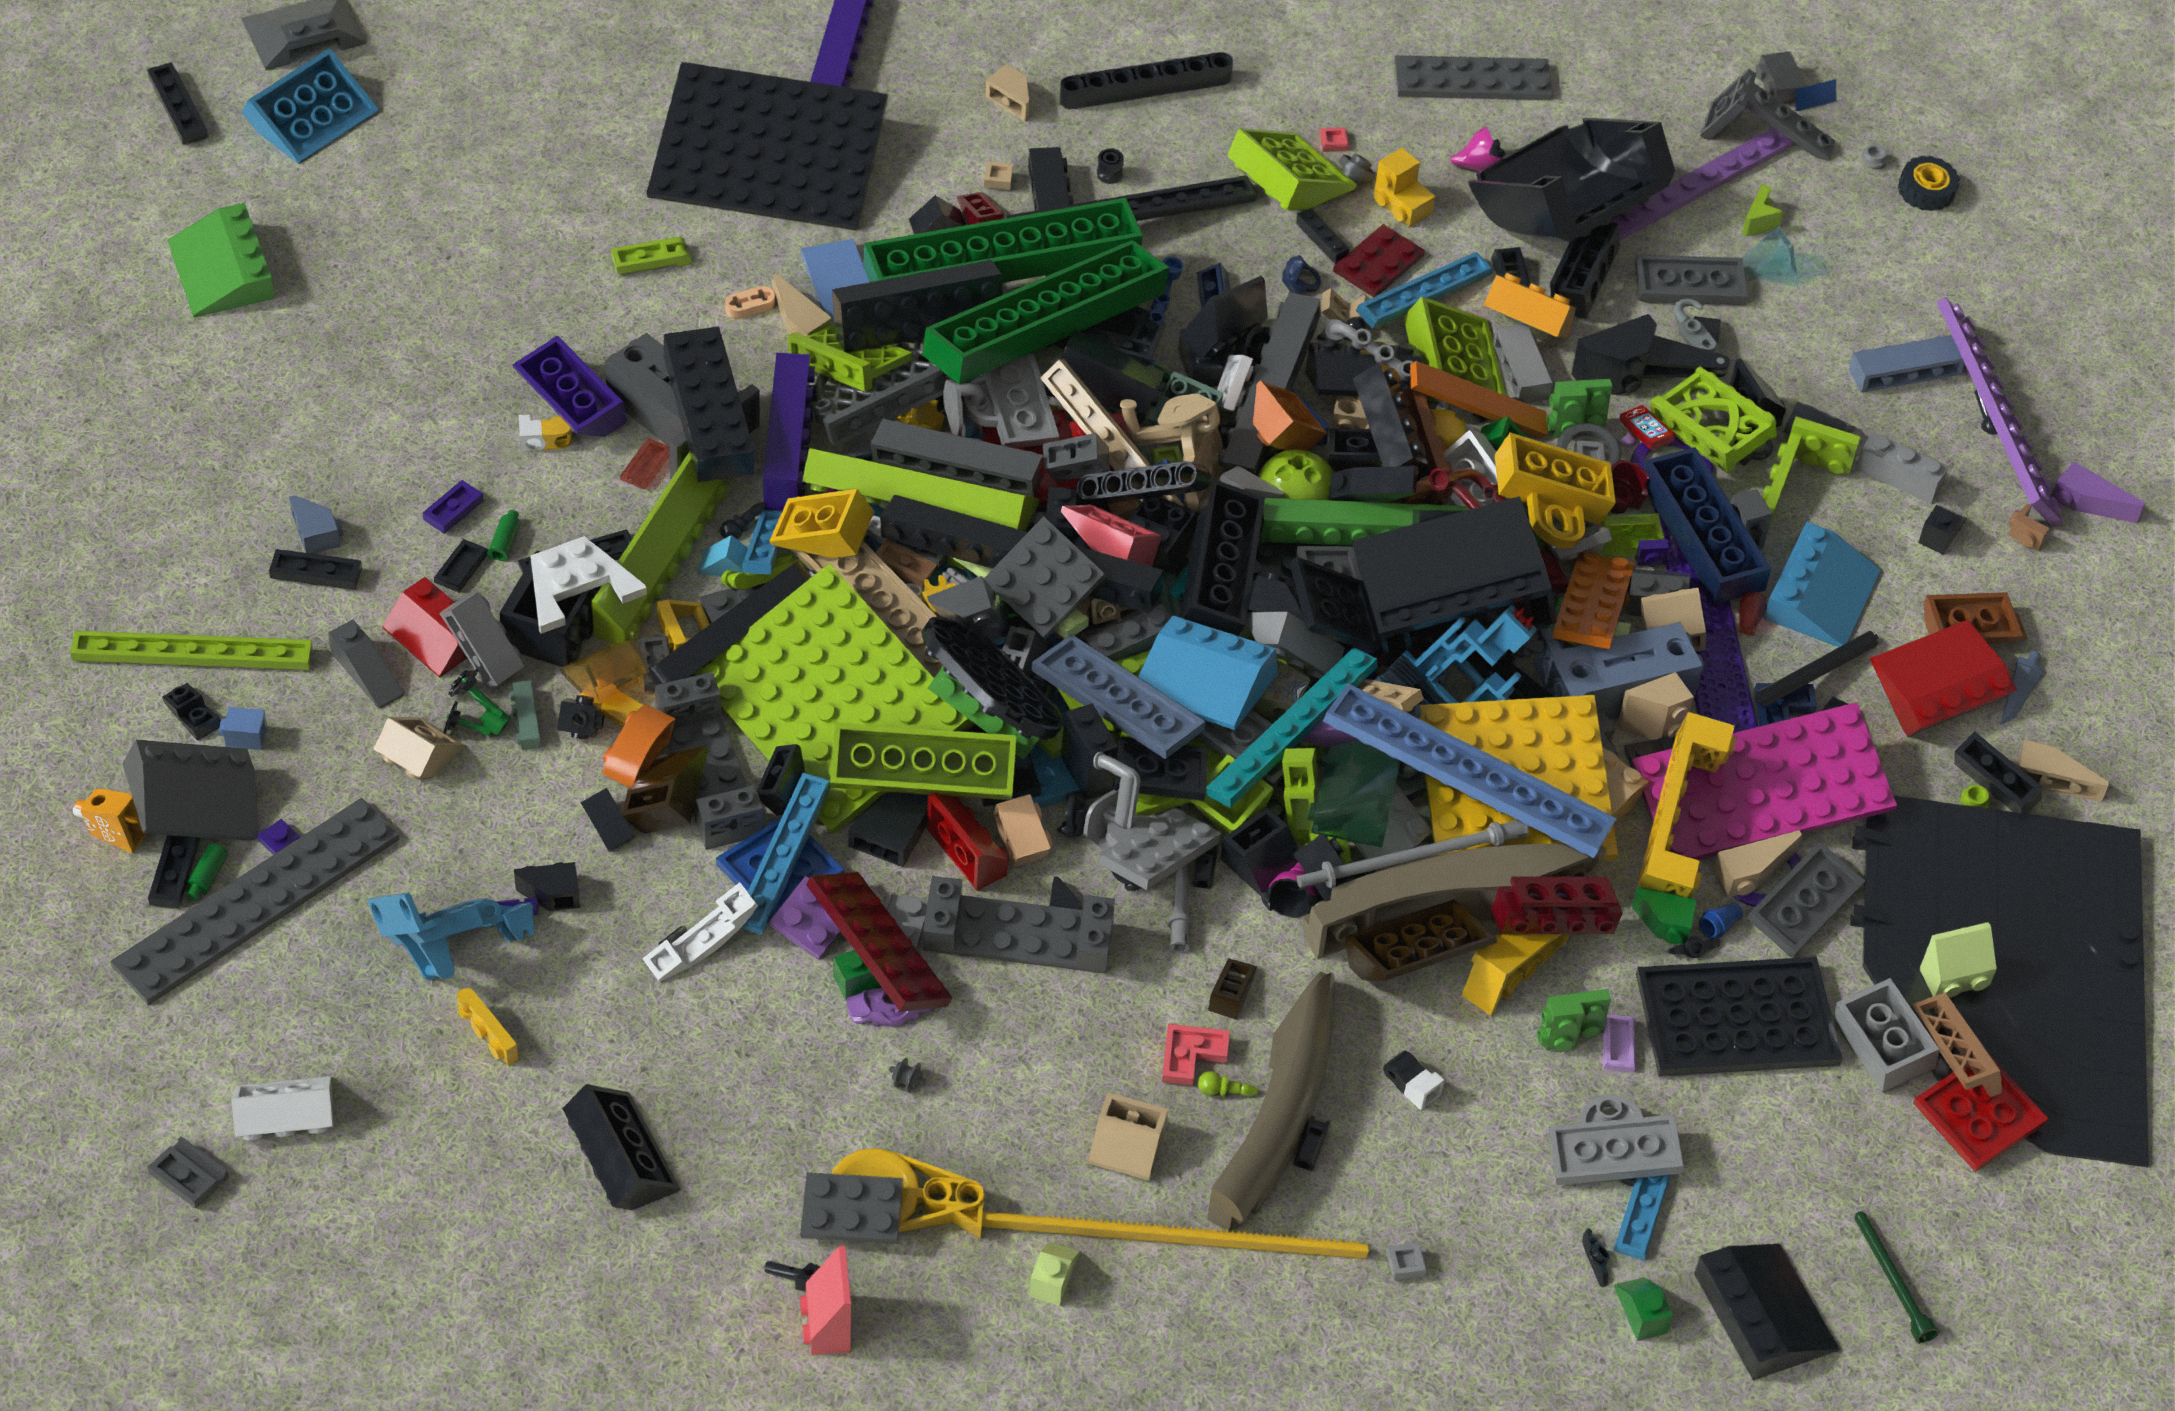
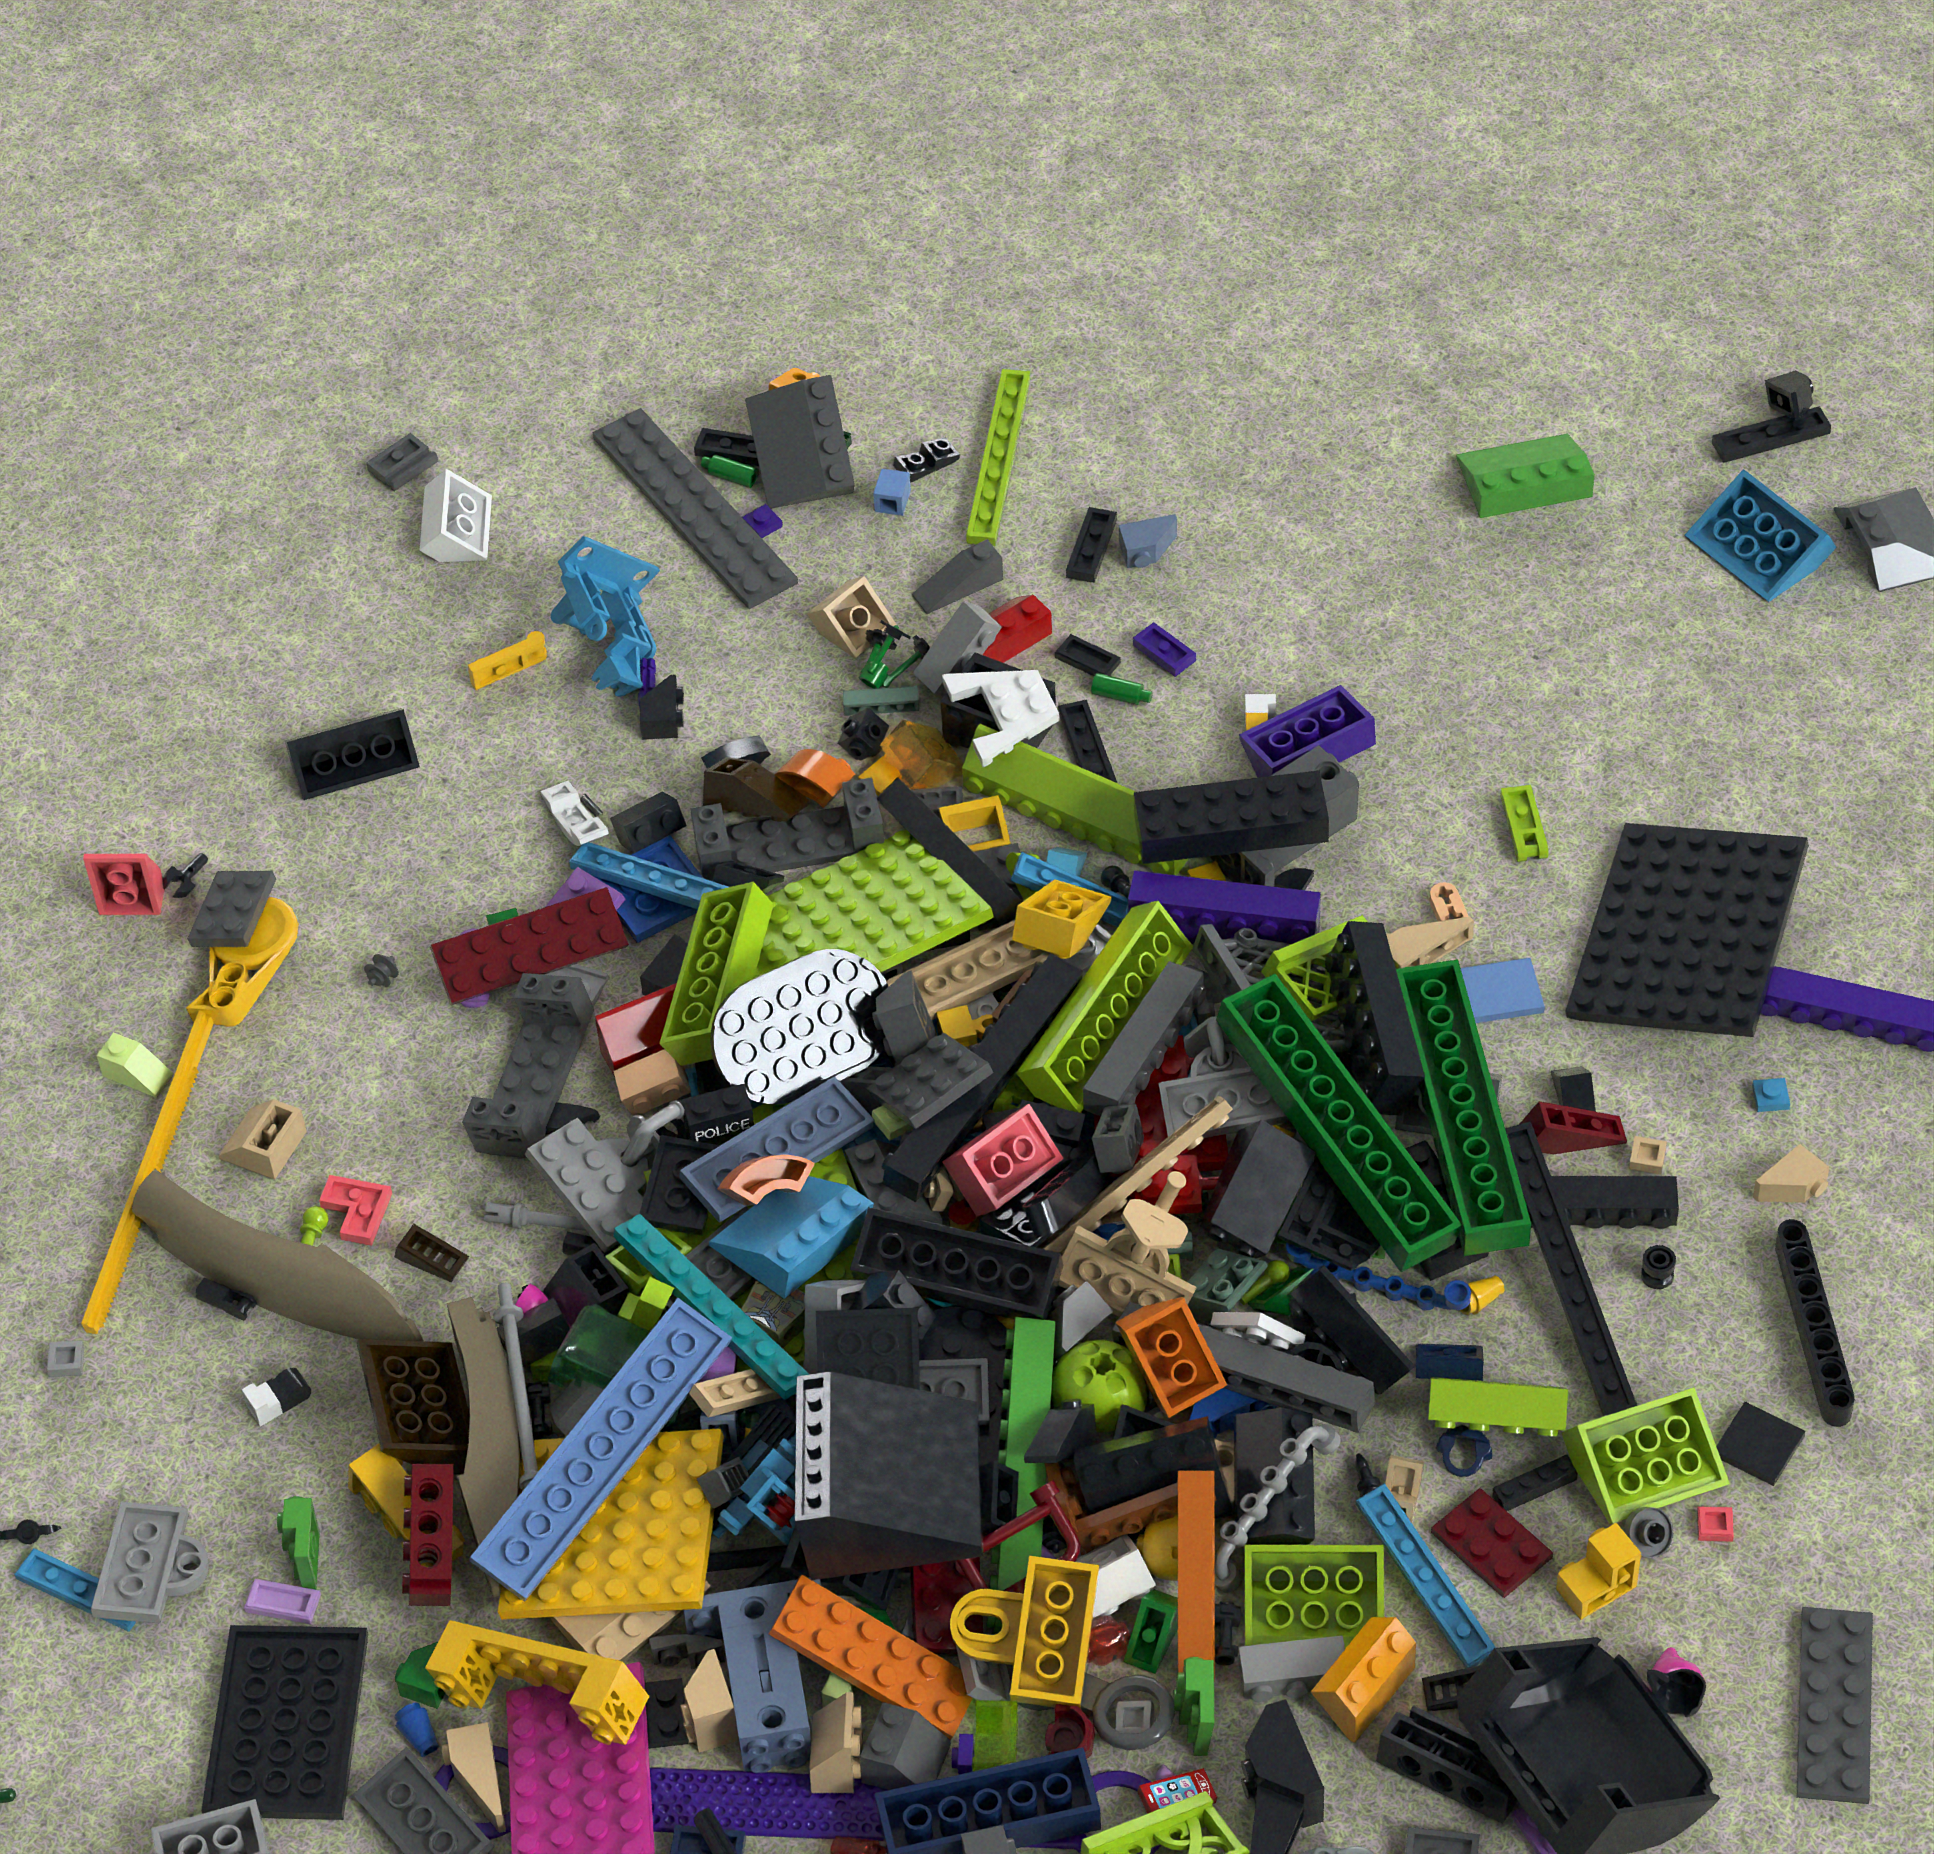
camera: 105 degrees right, 0 degrees up
(138, 82) = (1790, 394): none -> black slope
(703, 872) = (648, 822): none -> black brick
(924, 108) = (1771, 1094): none -> dark azure plate
(1171, 679) = (764, 1174): none -> brick
(1257, 112) = (1759, 1443): none -> black tile
(1268, 238) = (1498, 1404): none -> lime slope
(1479, 692) = (724, 1482): none -> dark grey slope
(1694, 947) = (388, 1697): black piece -> none

